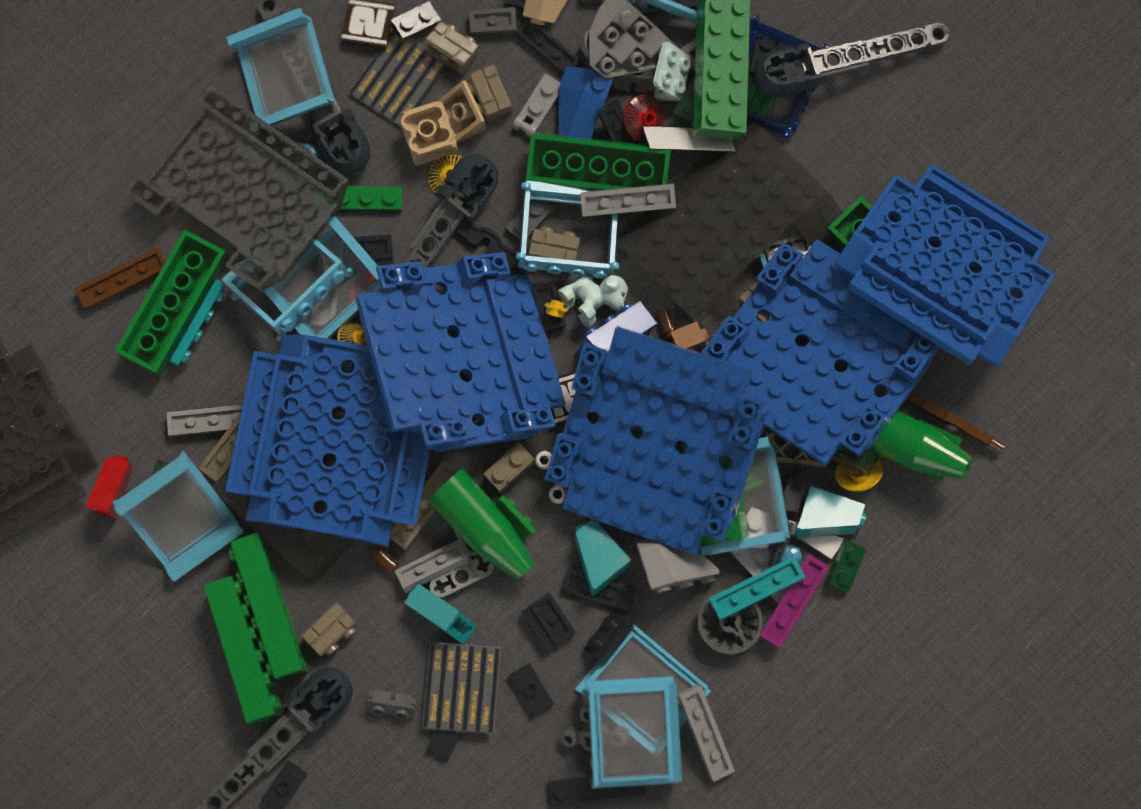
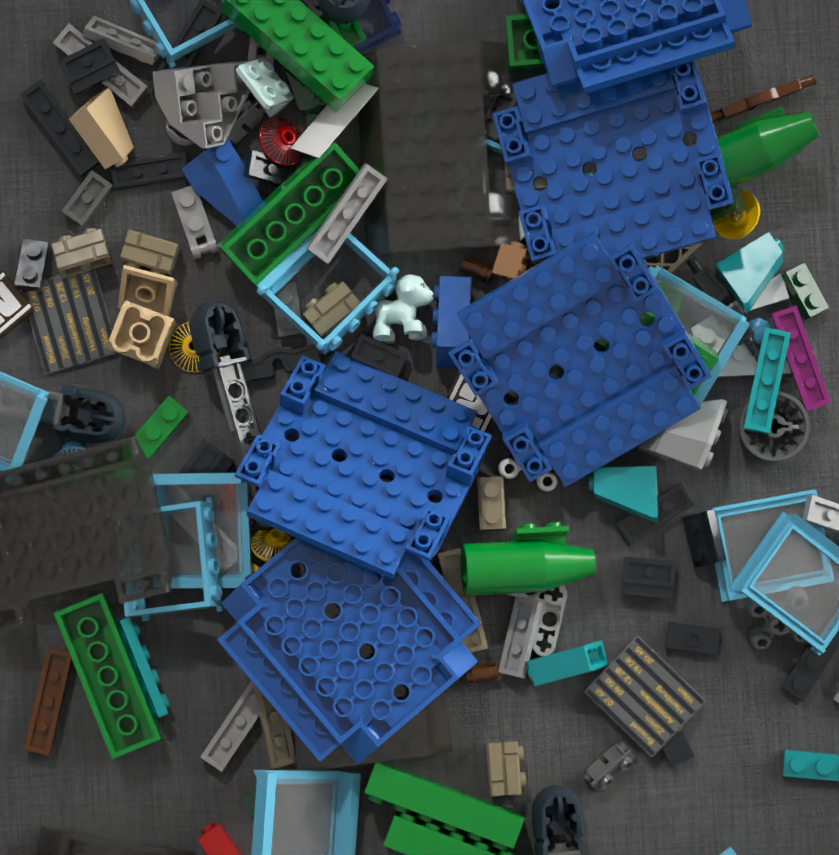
camera: 50 degrees left, 5 degrees up
(556, 308) = (388, 351): yellow plate -> none

